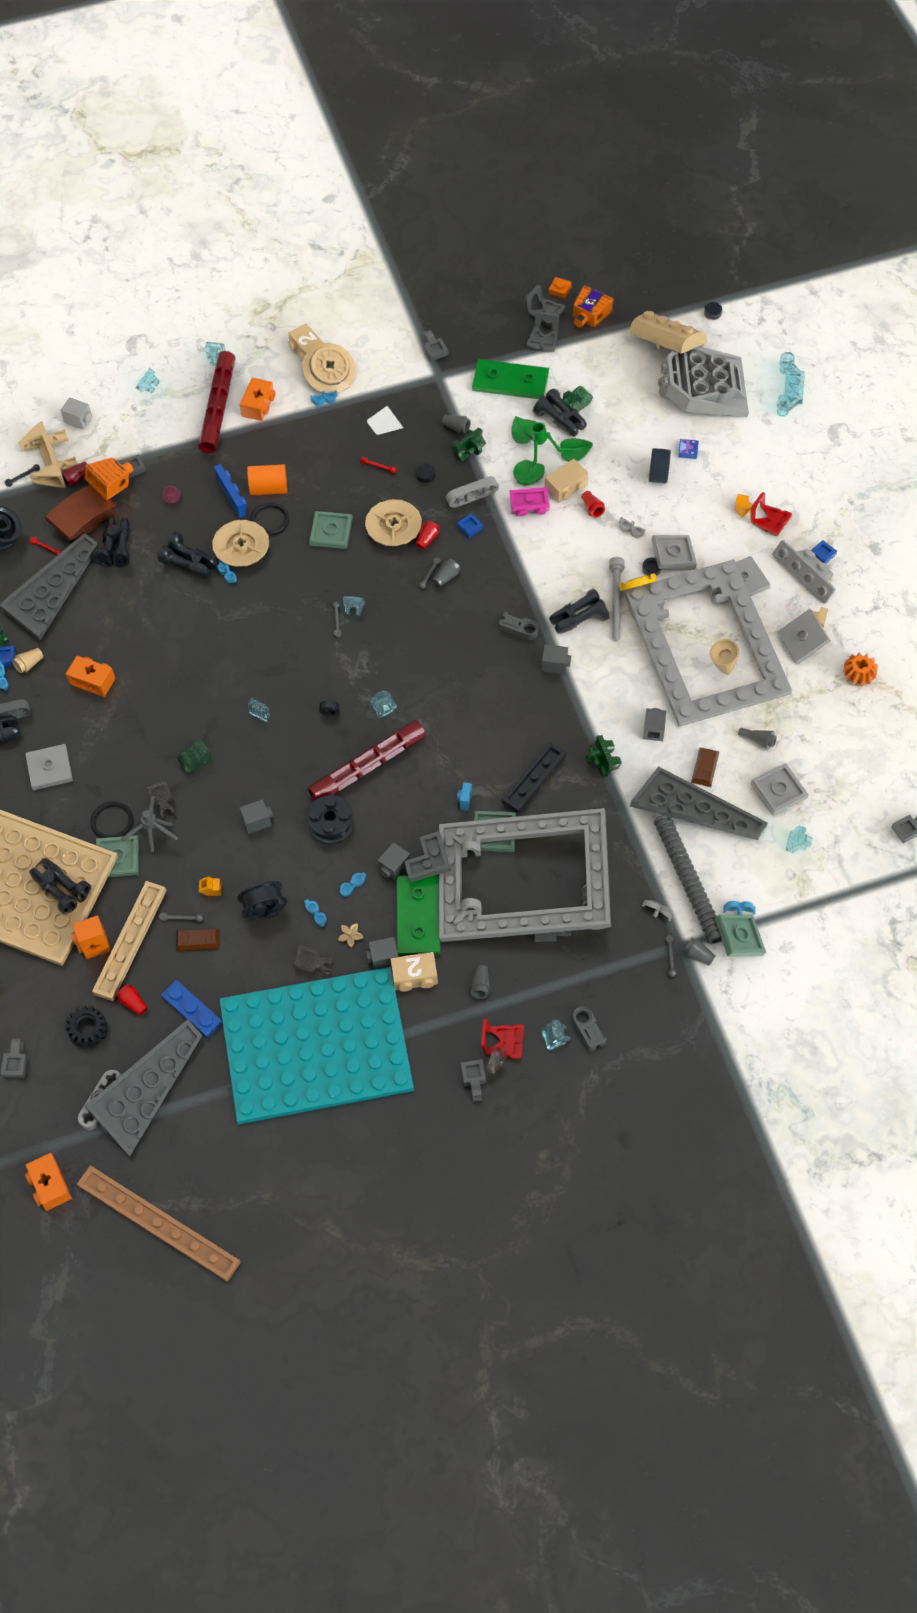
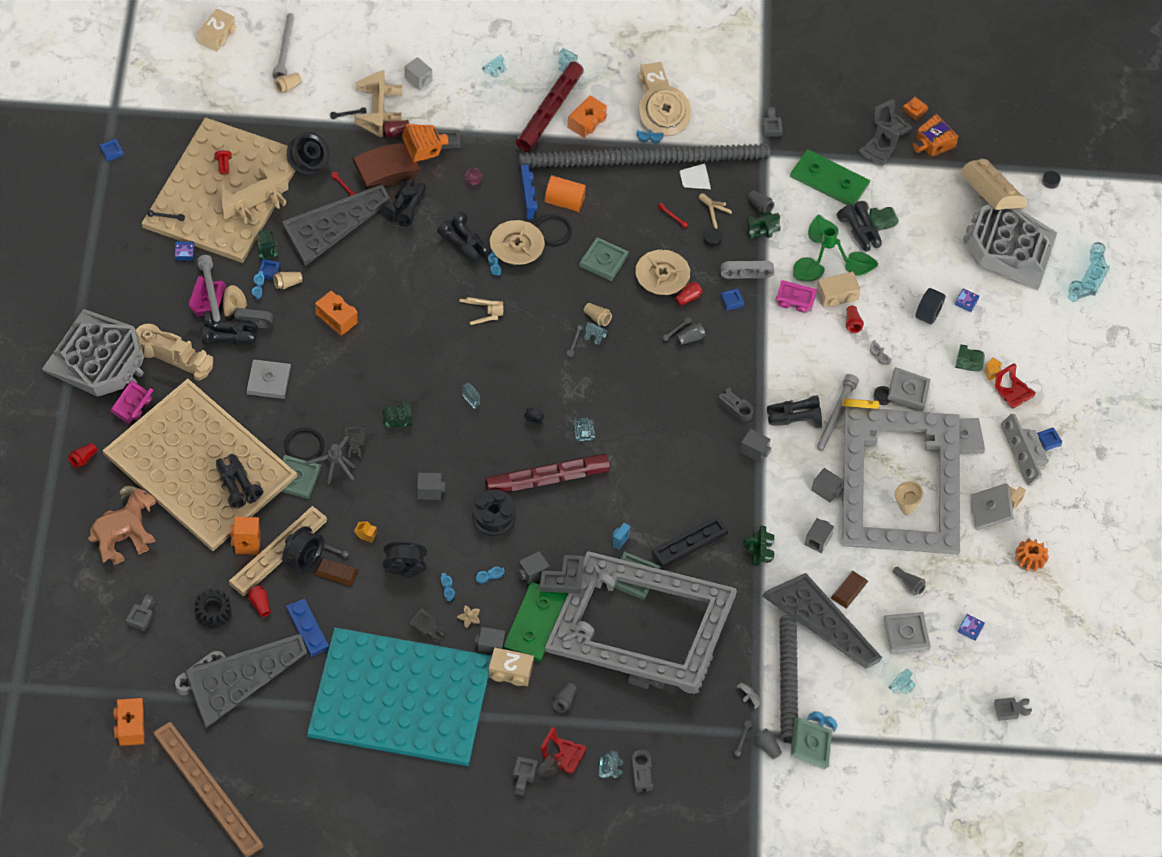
camera: 15 degrees right, 5 degrees down
(155, 930) = (303, 549): none -> black wheel
(245, 615) = (494, 308): none -> tan plant
(327, 418) = (637, 156): none -> dark grey piece
(349, 585) = (598, 314): none -> tan cone
(411, 441) = (712, 204): none -> tan plant
(640, 672) = (827, 485): none -> dark grey brick
(716, 503) = (970, 359): none -> clear green leg
(836, 760) = (971, 627): none -> tile

